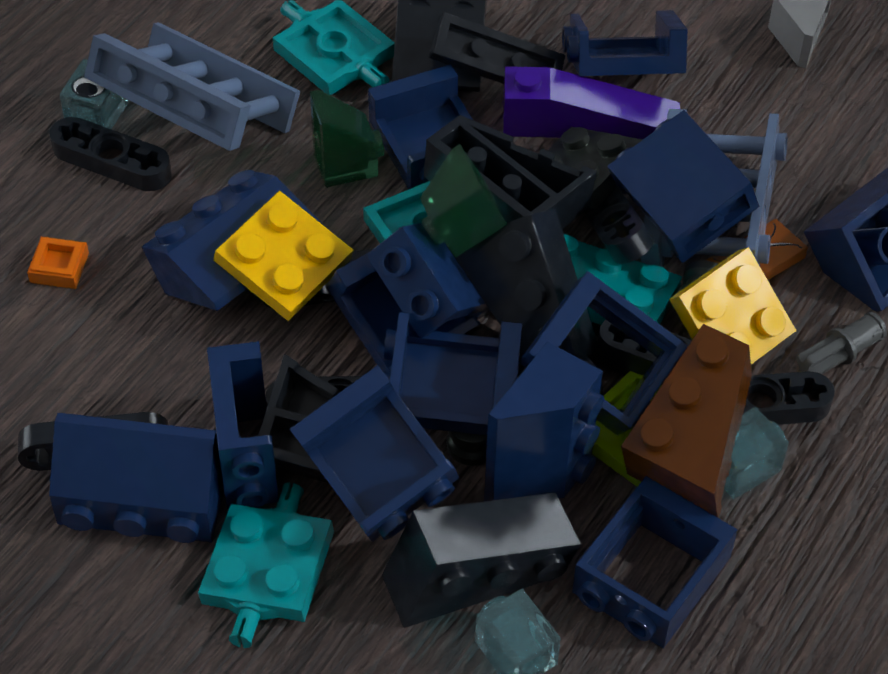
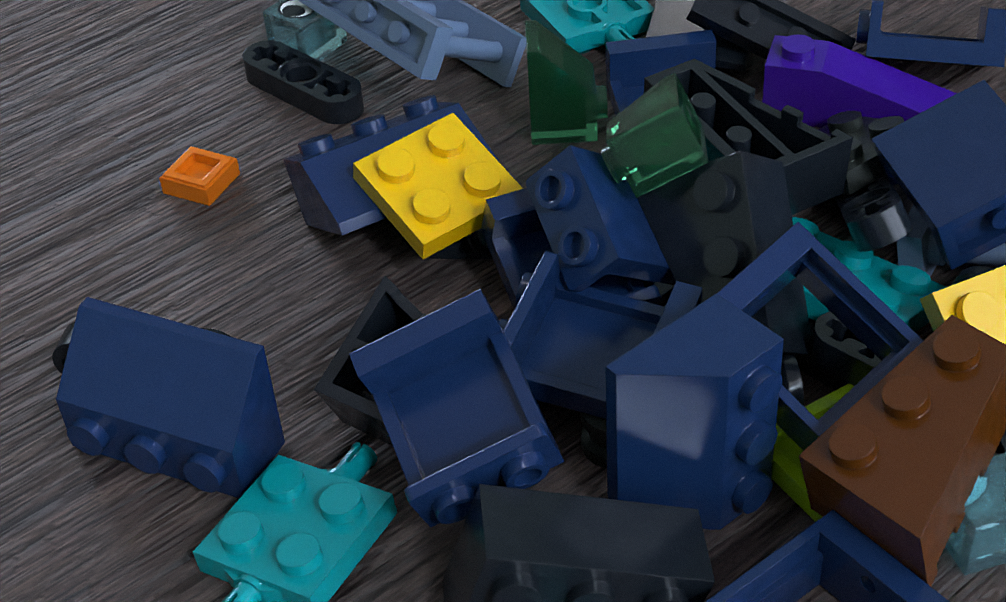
camera: 20 degrees right, 10 degrees down
(240, 397) = (294, 370): dark blue panel -> none

